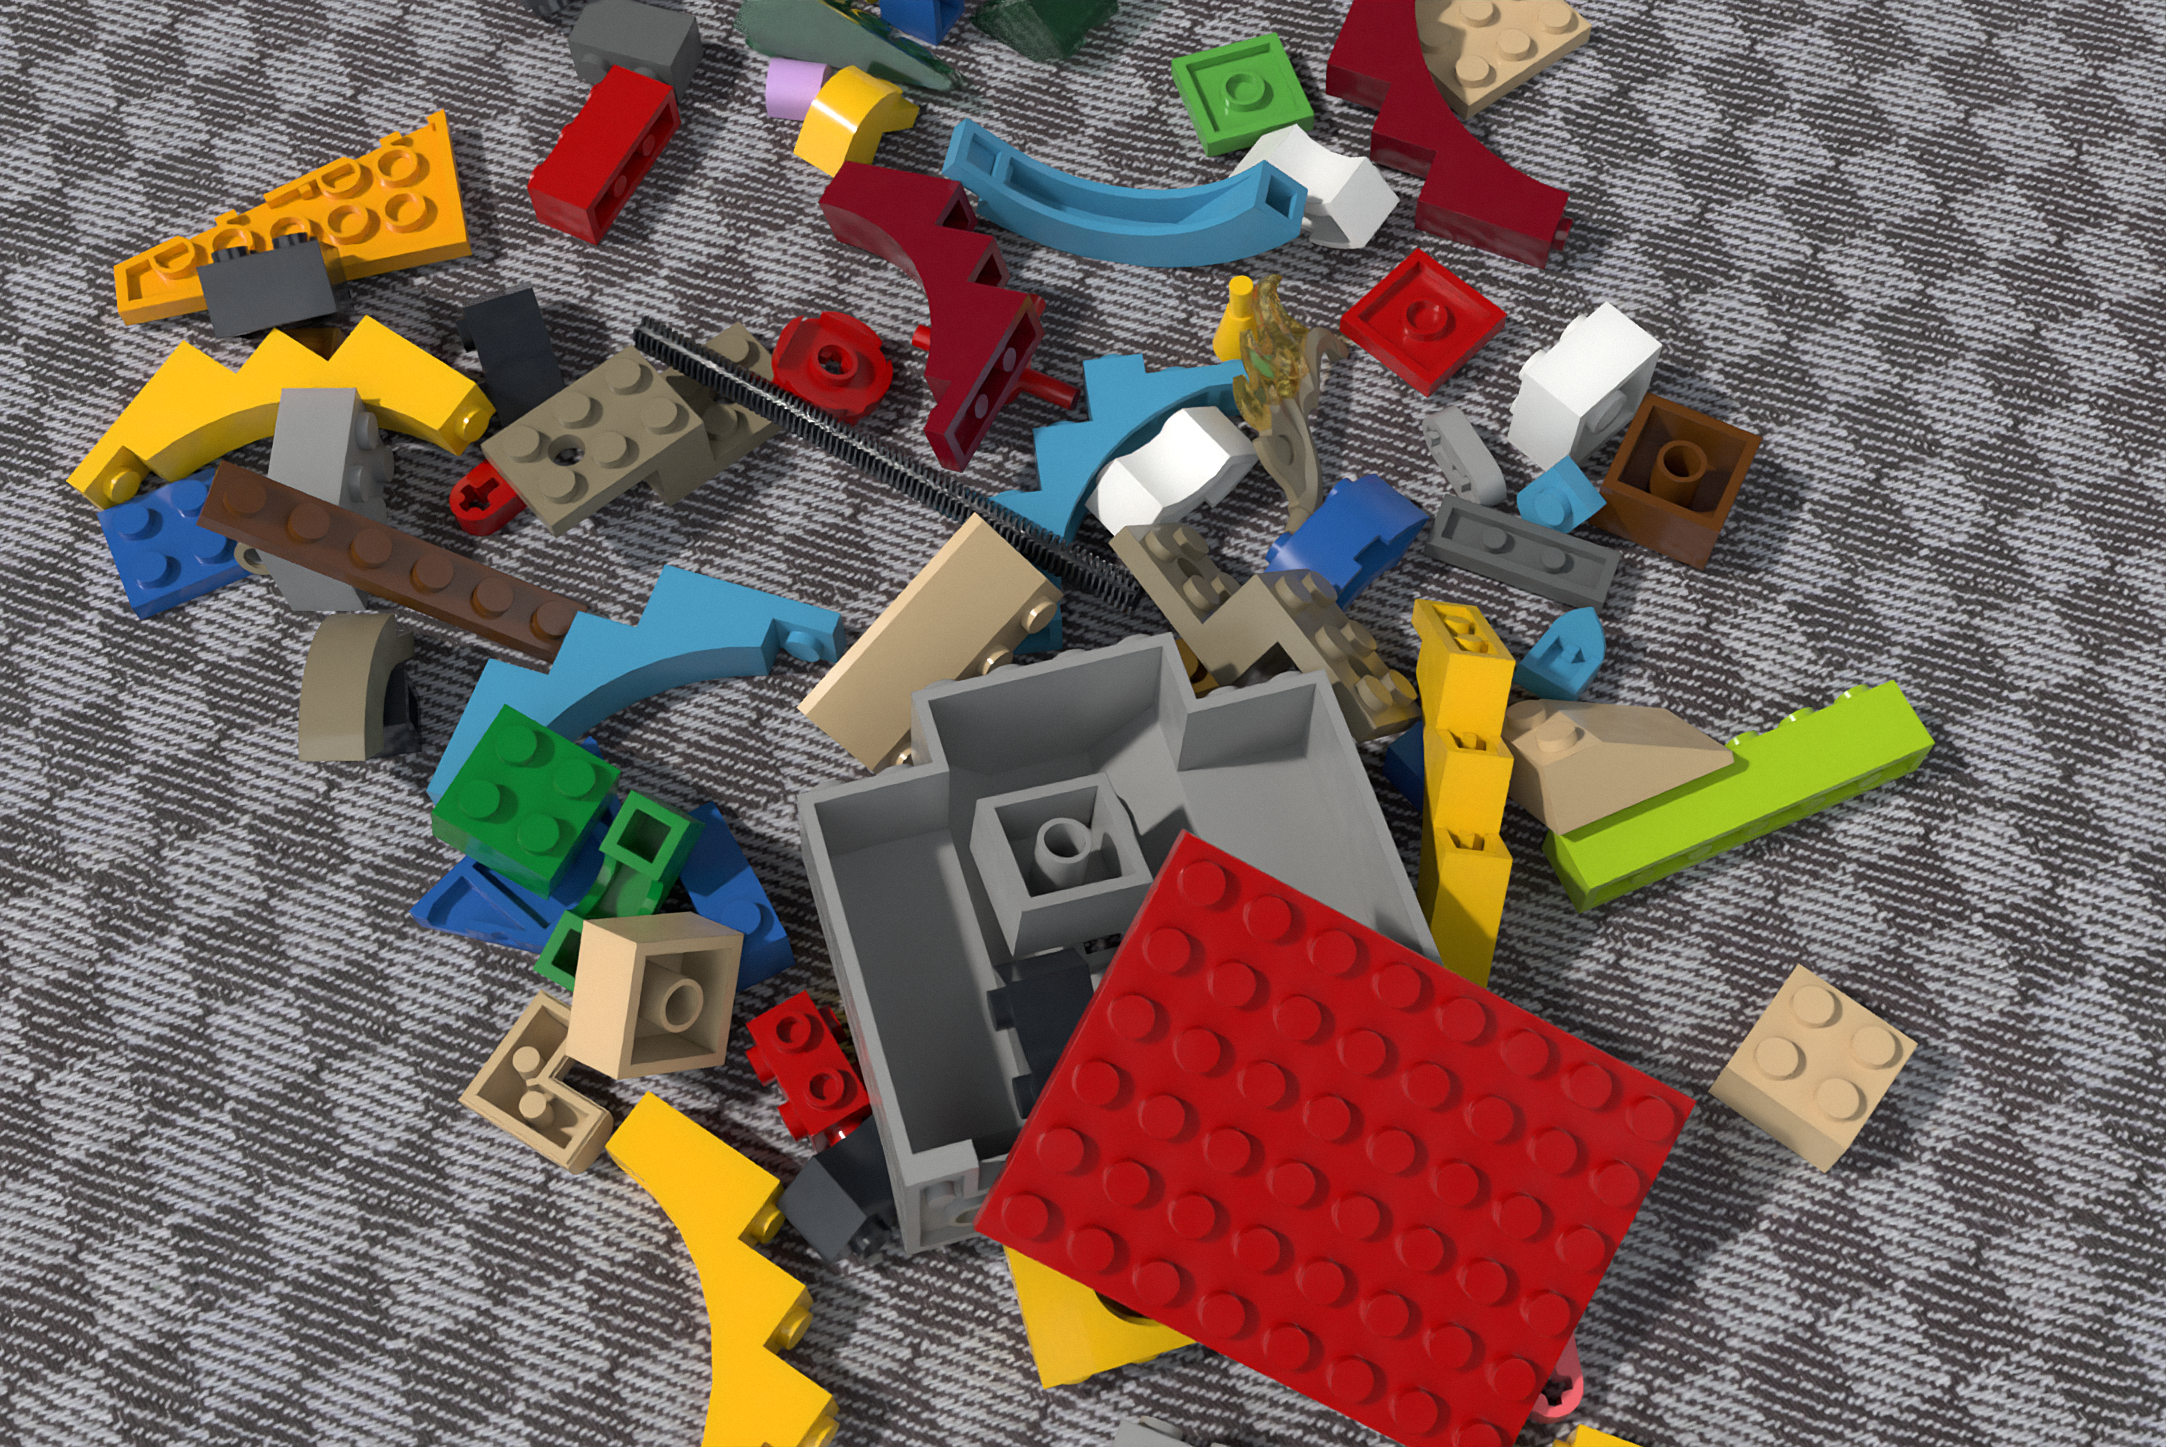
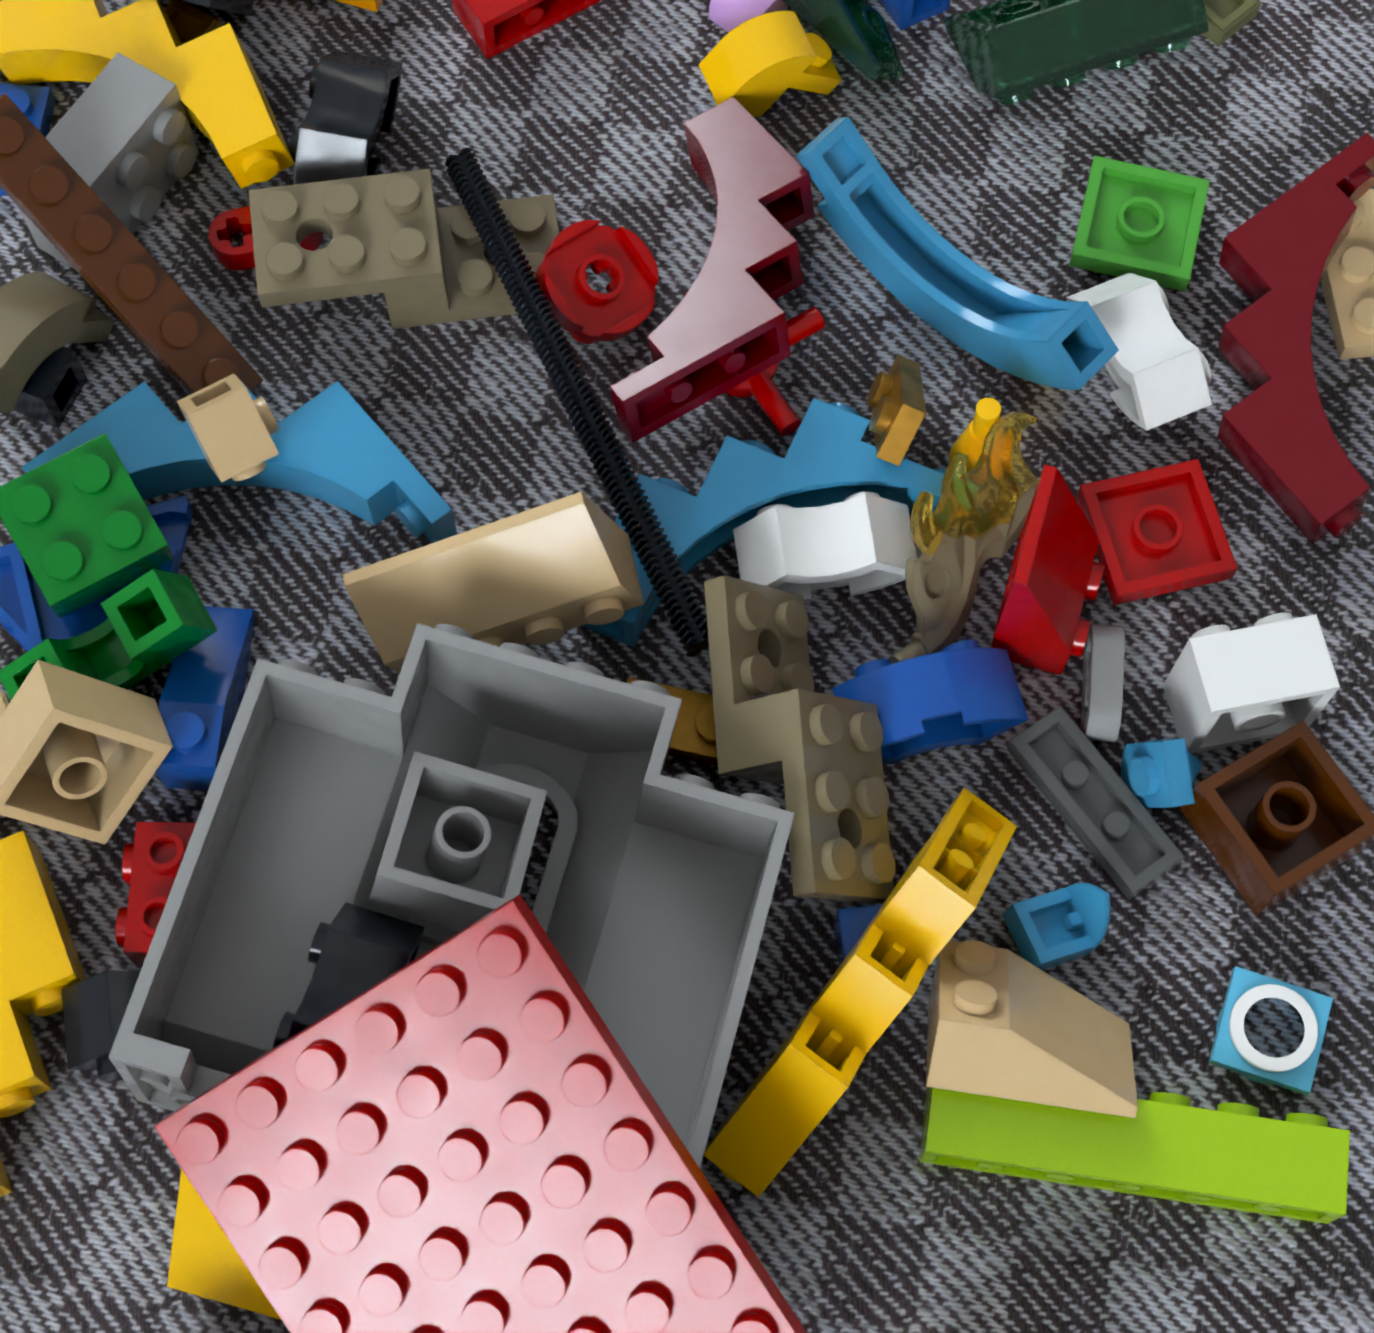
camera: 30 degrees right, 5 degrees up
(607, 645) = (231, 428): none -> tan brick
(1159, 332) = (896, 409): none -> pearl gold plate
(1369, 399) = (1049, 580): none -> red slope
(1766, 681) = (1235, 1053): none -> piece

